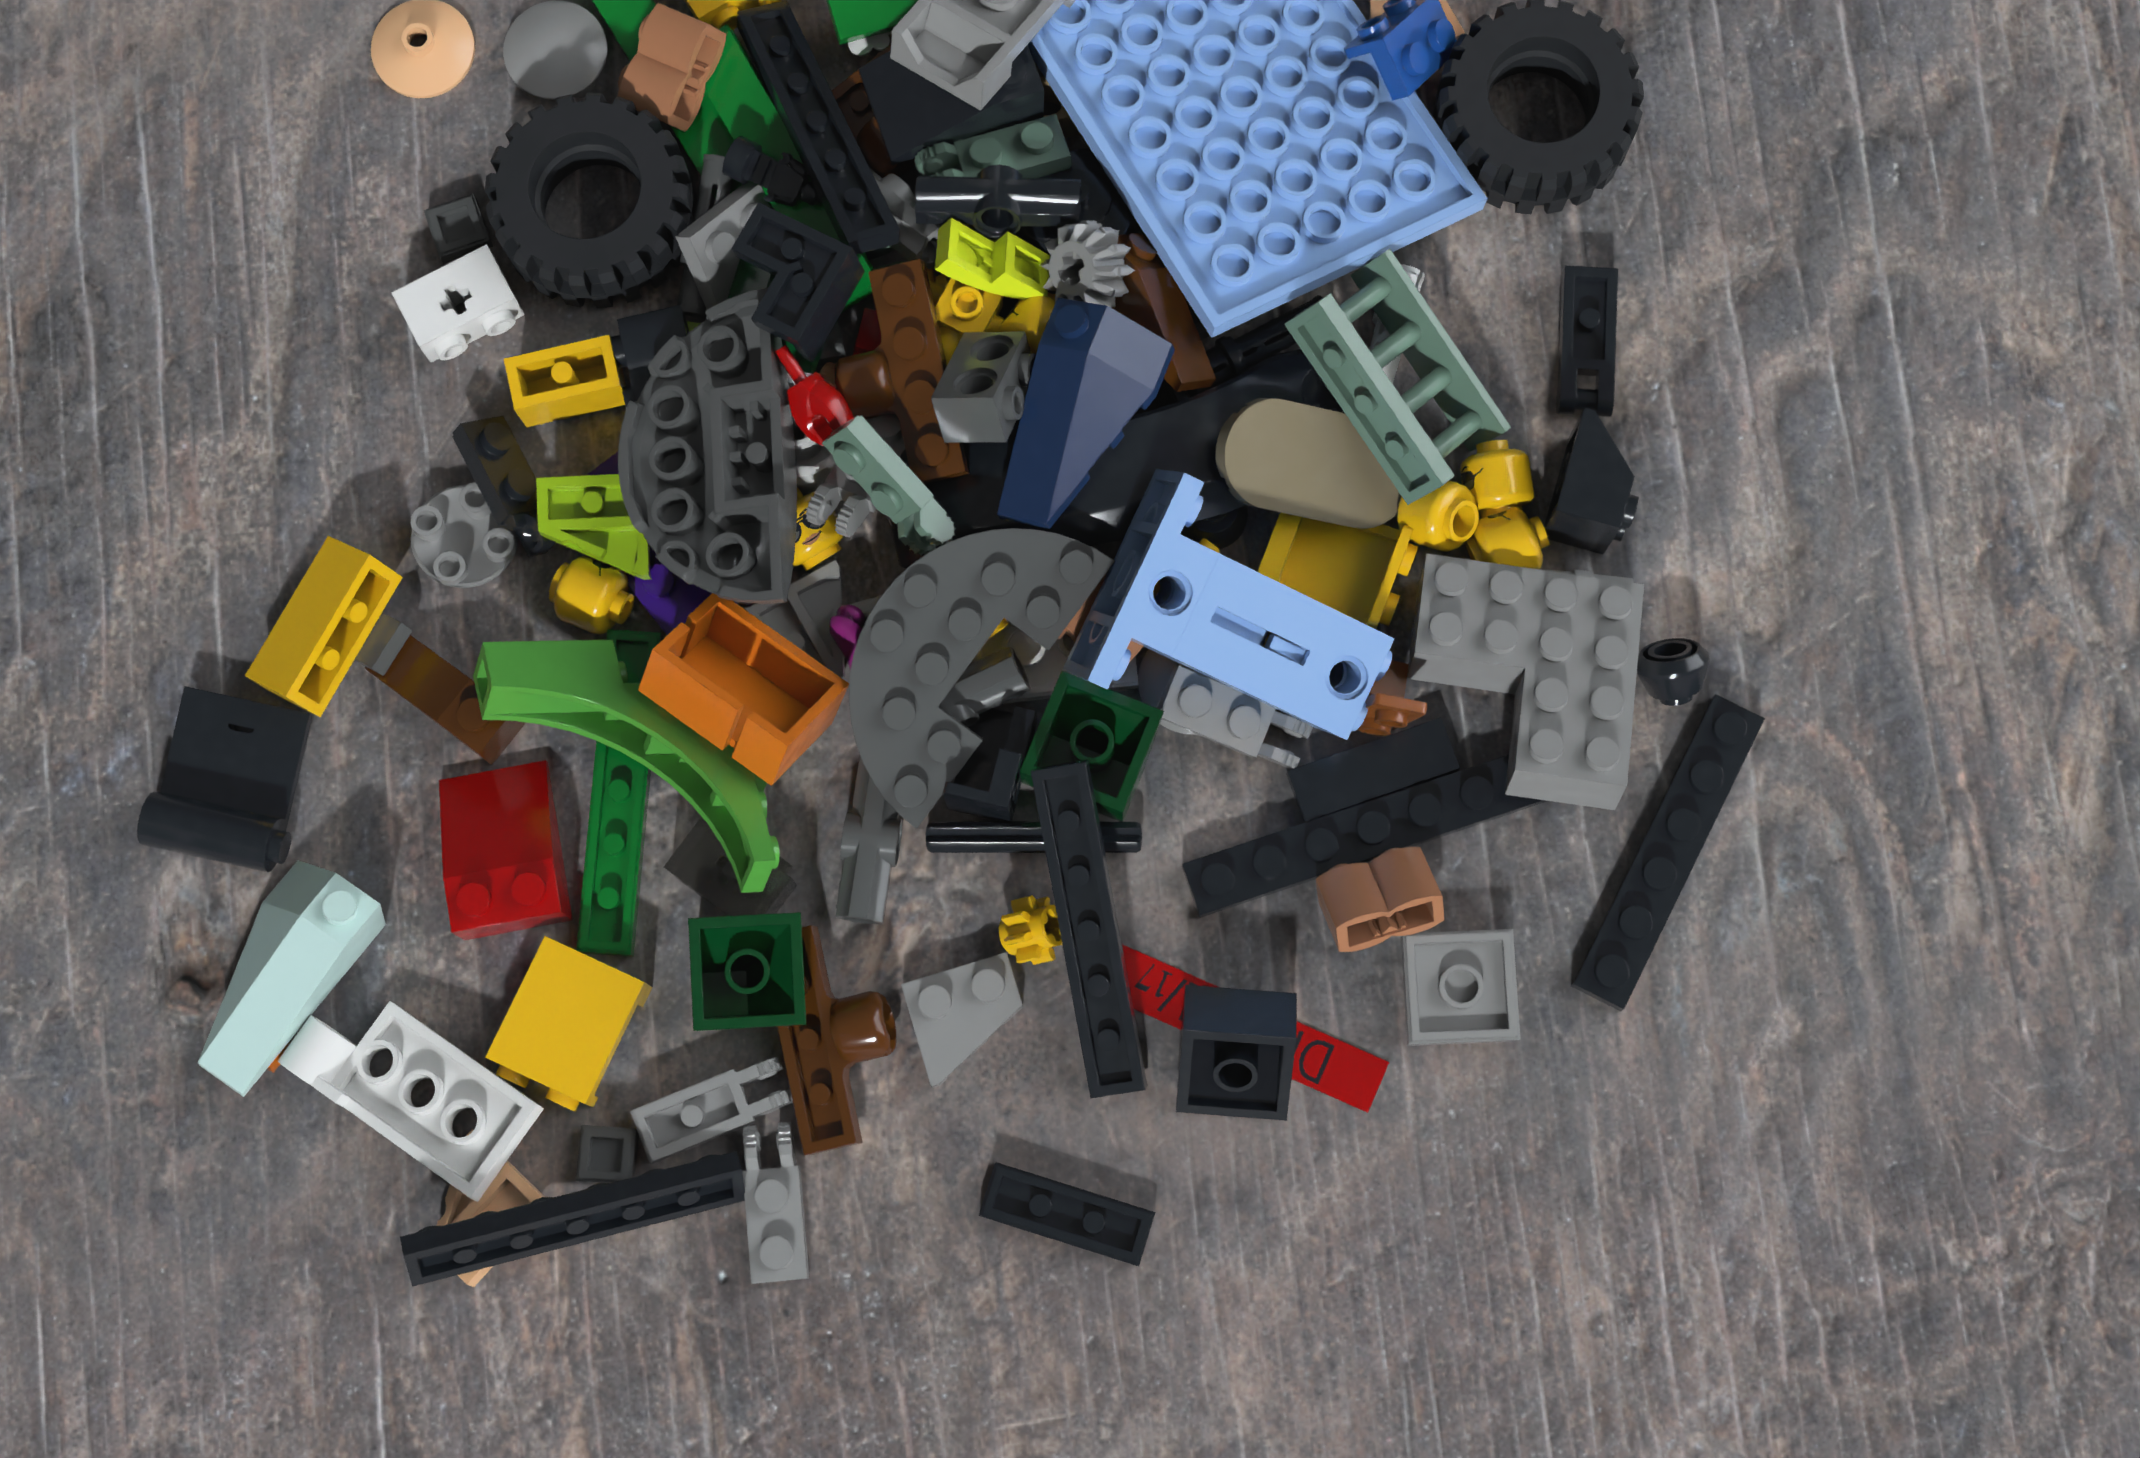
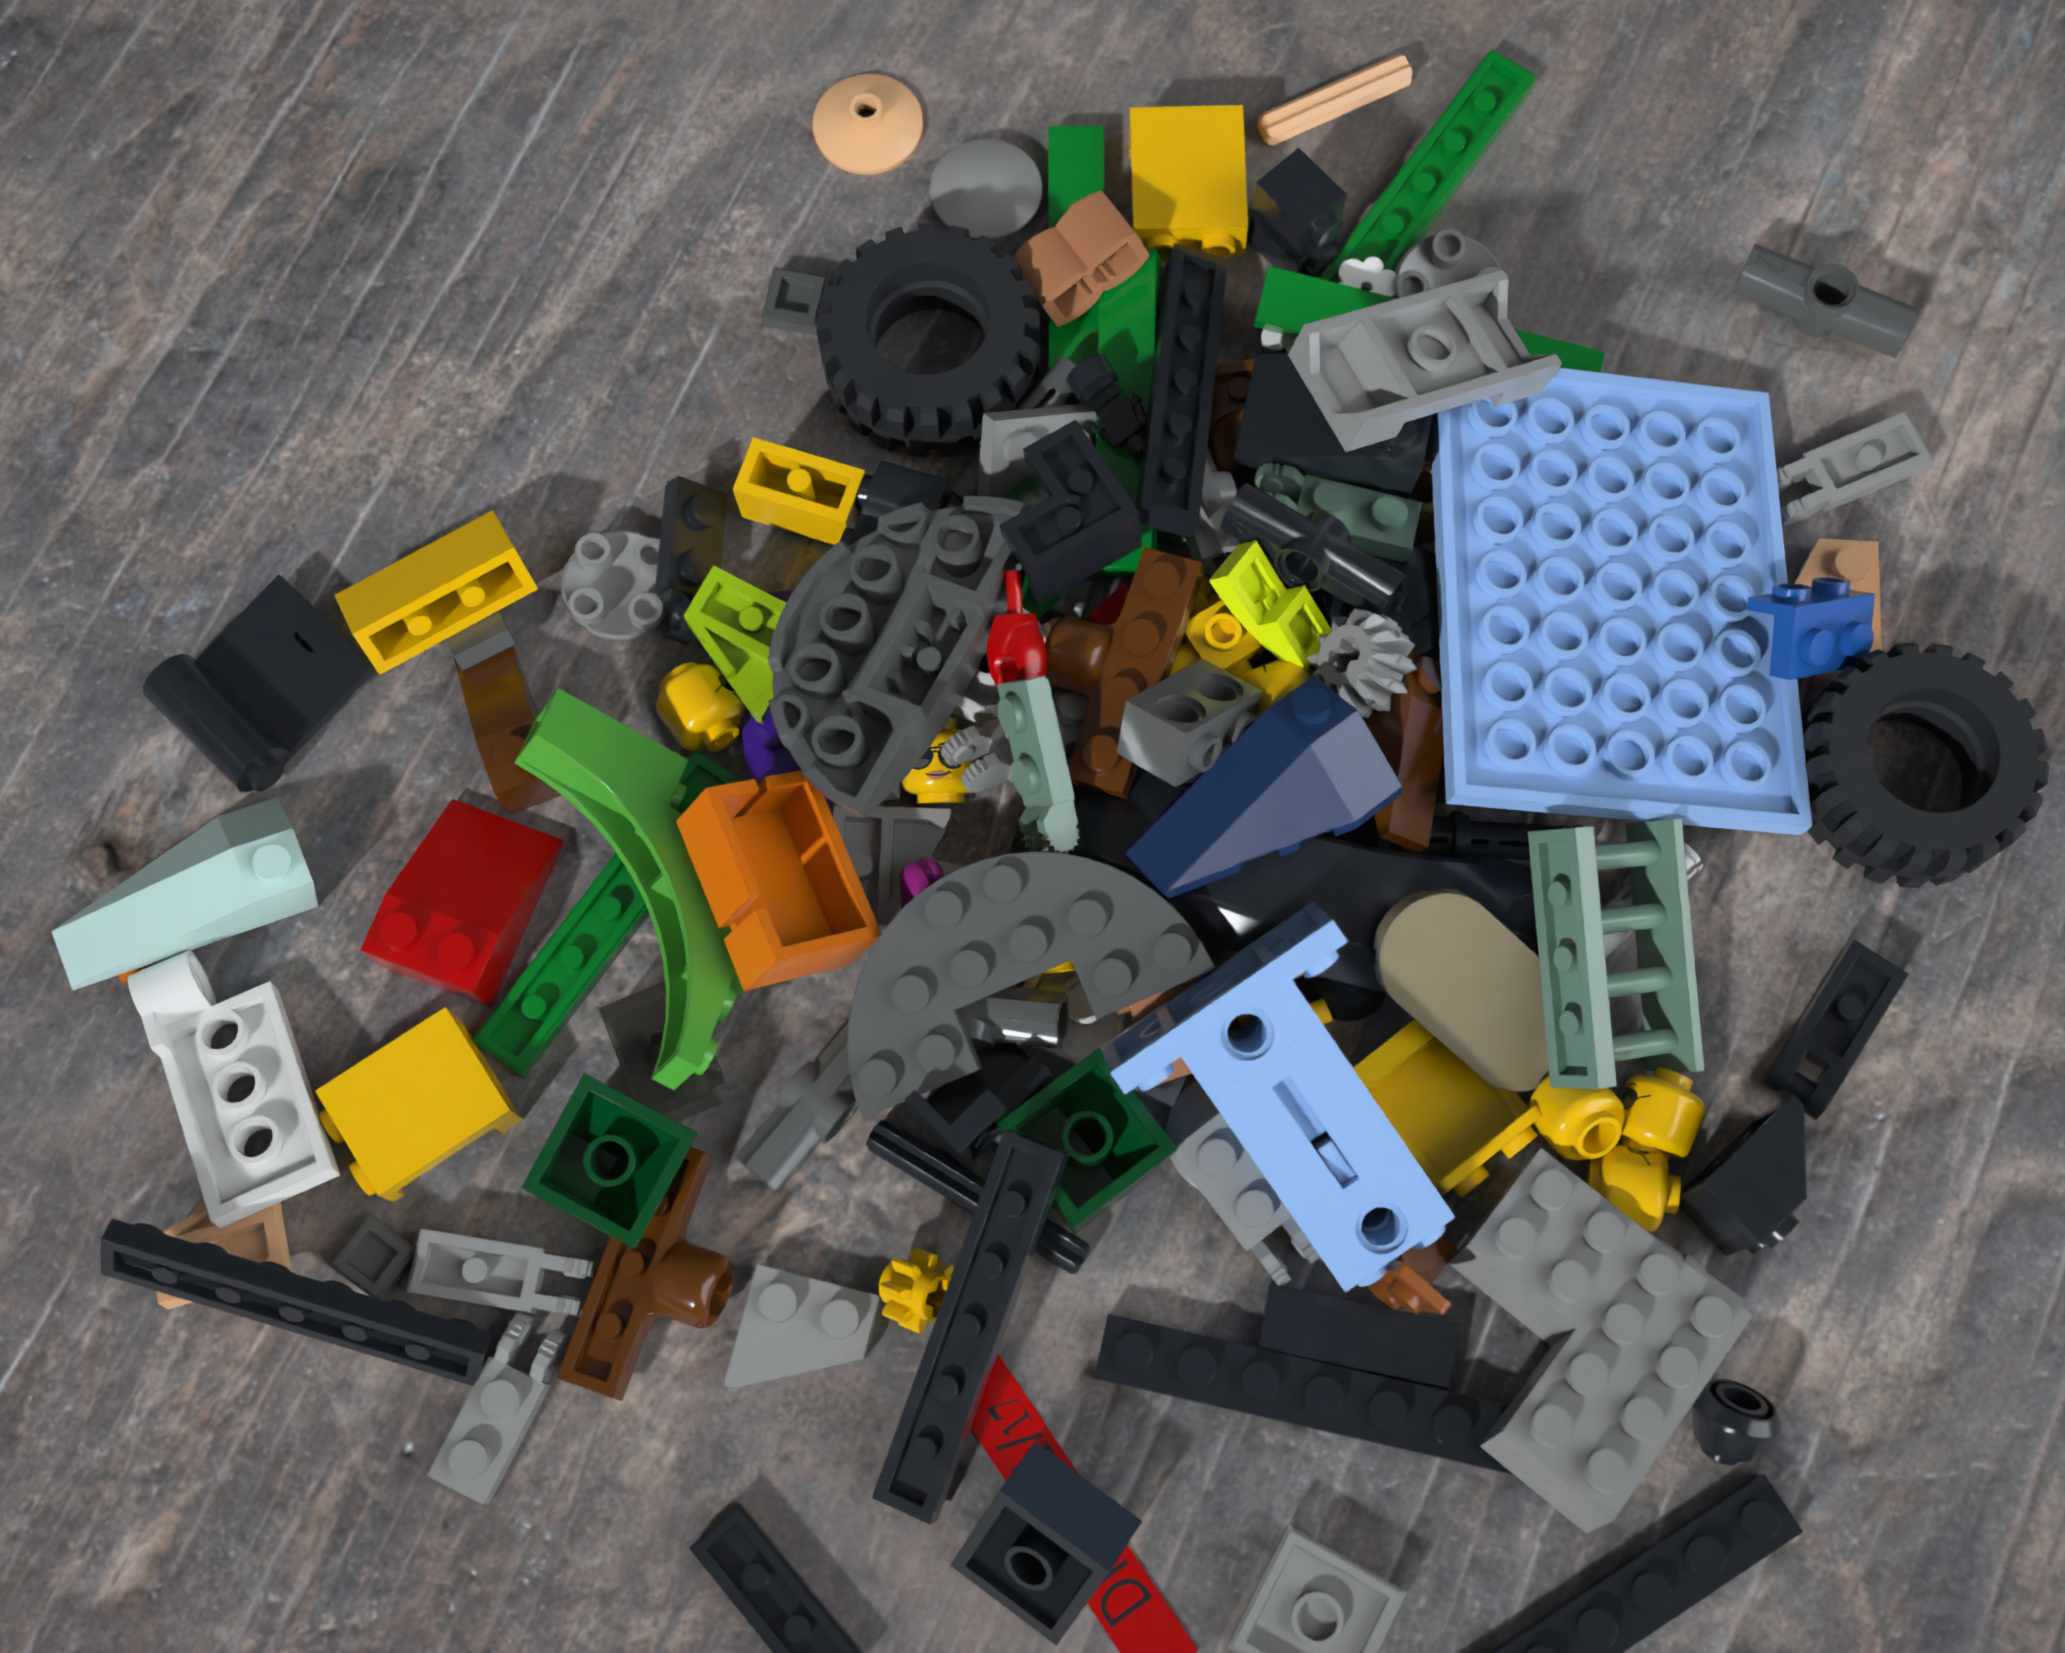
camera: 30 degrees right, 5 degrees down
(432, 302) = (727, 351): white brick -> none
(1380, 899) = (1286, 1475): nougat brick -> none

